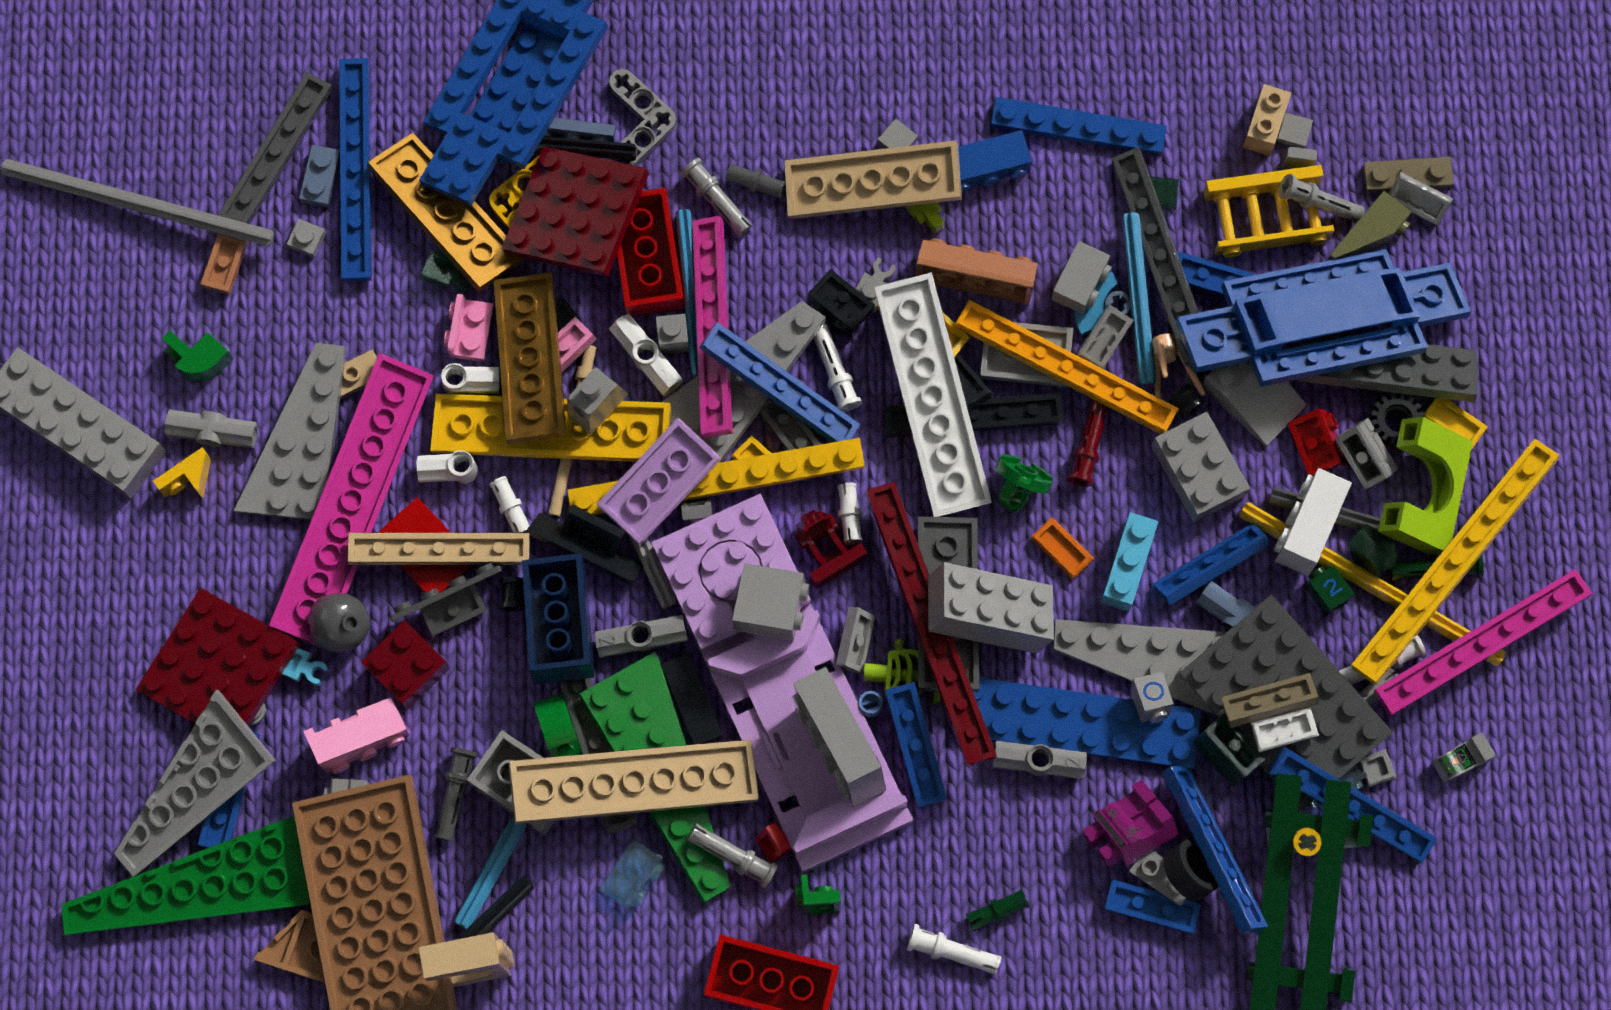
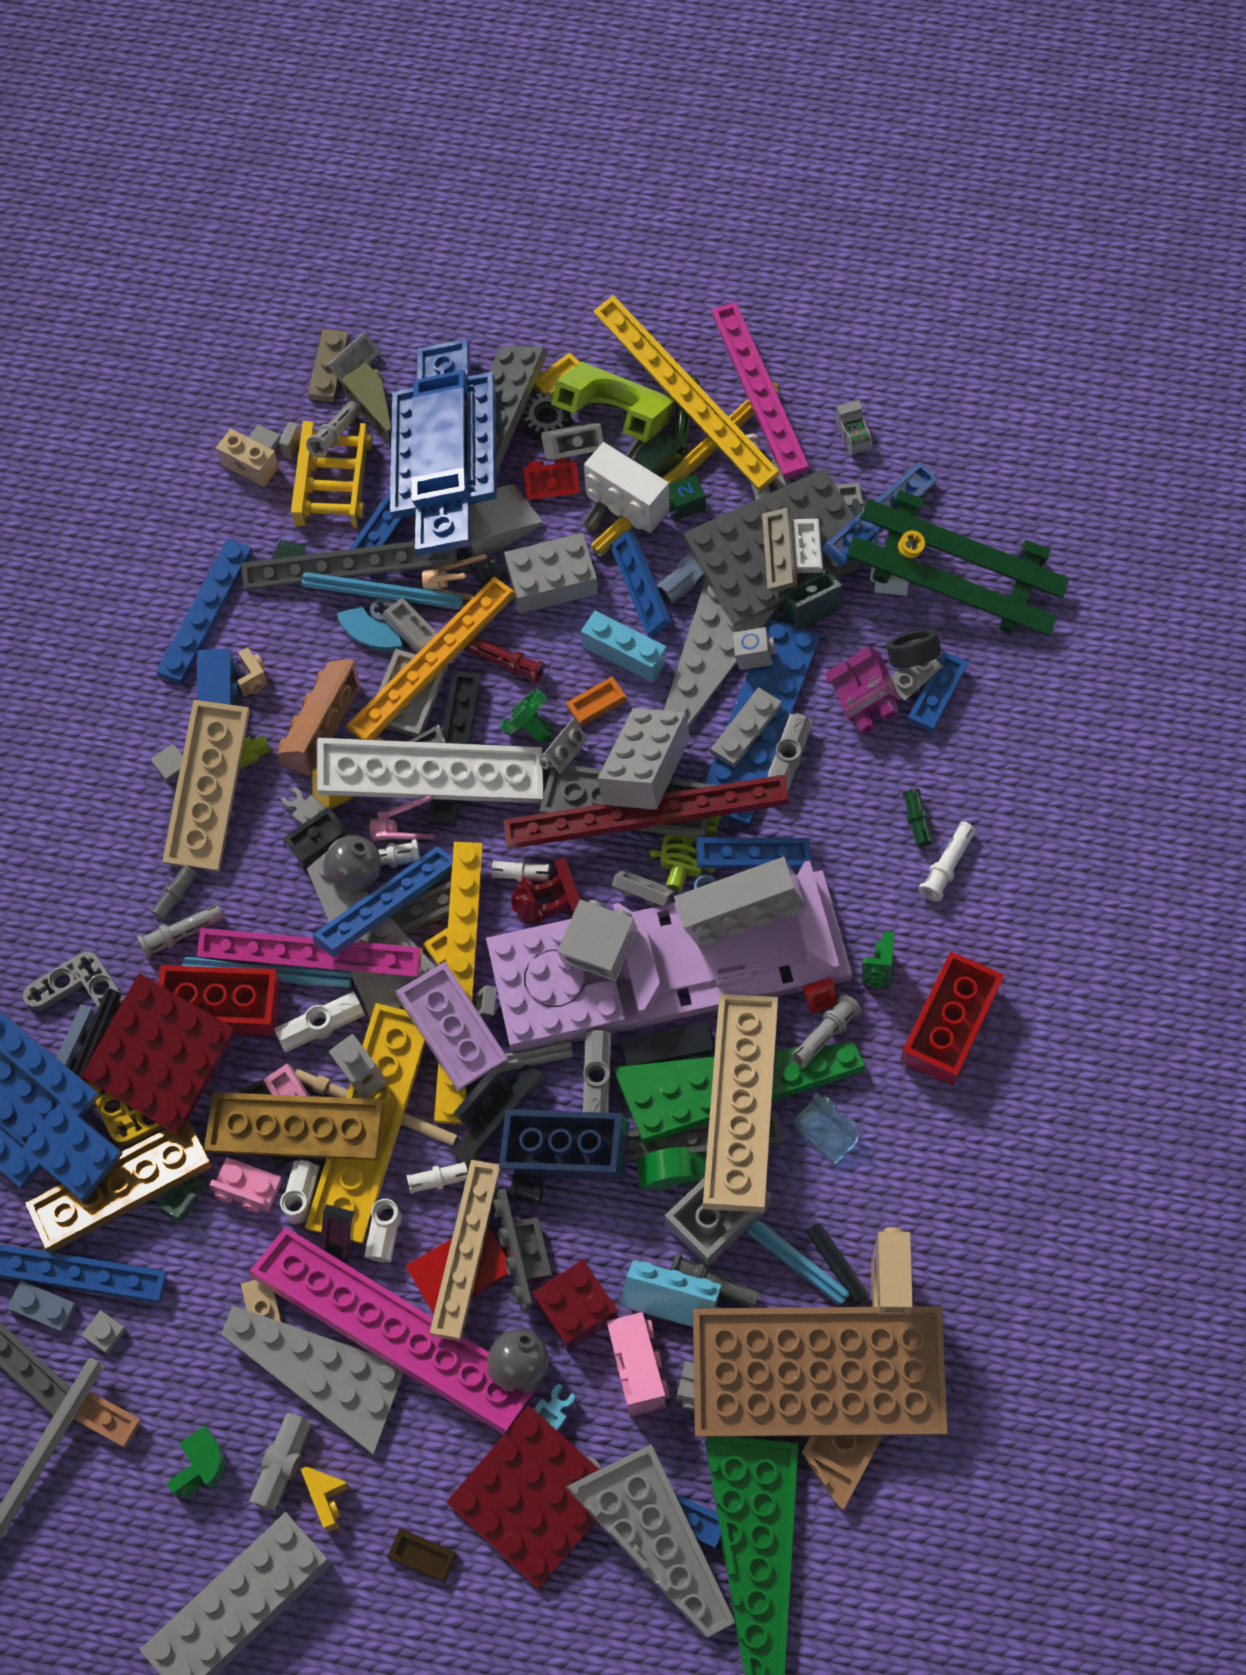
camera: 75 degrees left, 10 degrees down
(149, 578) = (422, 1556): none -> dark brown tile
(431, 424) = (337, 1232): none -> black tile
(431, 751) = (667, 1292): none -> medium azure brick
(672, 334) = (304, 992): light grey brick -> none
(811, 343) = (352, 864): none -> dark grey cylinder
(865, 365) = (386, 829): none -> bright pink plant
(995, 526) = (564, 747): none -> light grey hinge
(1020, 192) = (256, 678): none -> tan bracket
(1059, 708) = (745, 727): none -> light grey plate
(1081, 277) = (351, 630): light grey brick -> none
(1215, 850) = (910, 624): blue plate -> none

